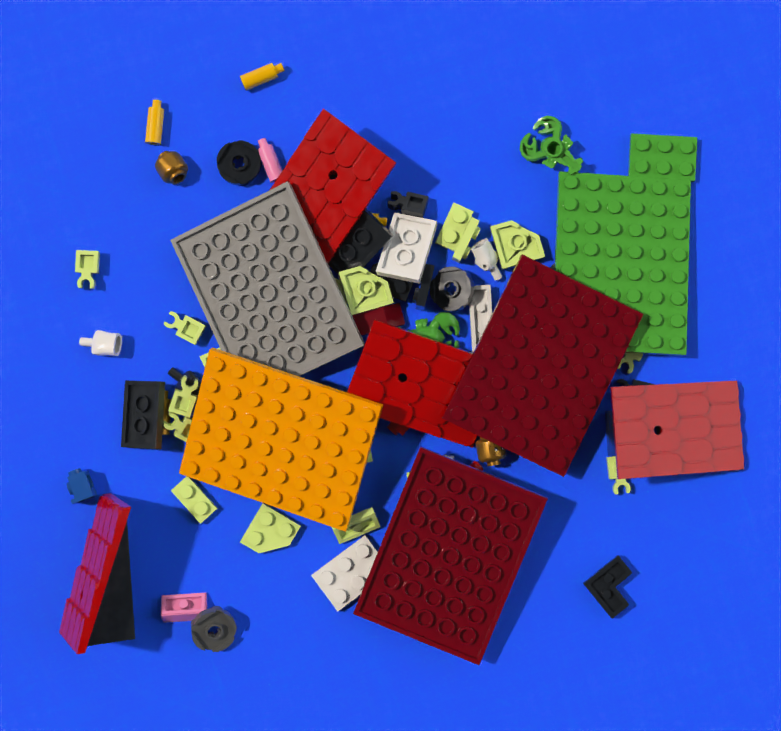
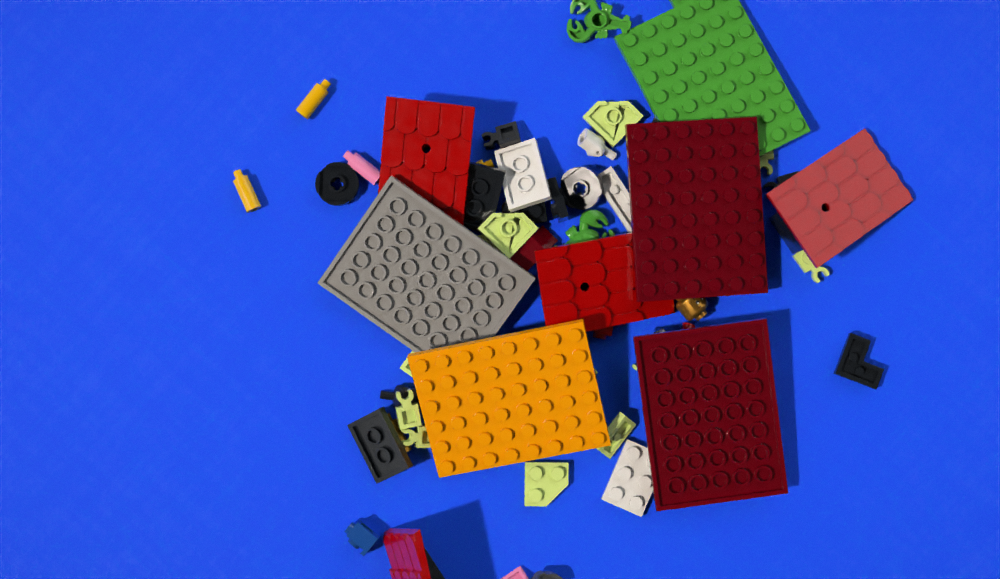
camera: 30 degrees left, 0 degrees up
(87, 264) = (258, 344): yellowish green plate -> none
(103, 343) = (310, 404): white piece -> none
(171, 167) = (282, 221): pearl gold head -> none
(187, 329) = (376, 350): yellowish green plate -> none
(194, 499) = (464, 492): yellowish green plate -> none
(454, 227) = (552, 134): yellowish green plate -> none
(471, 231) = (569, 131): yellowish green plate -> none

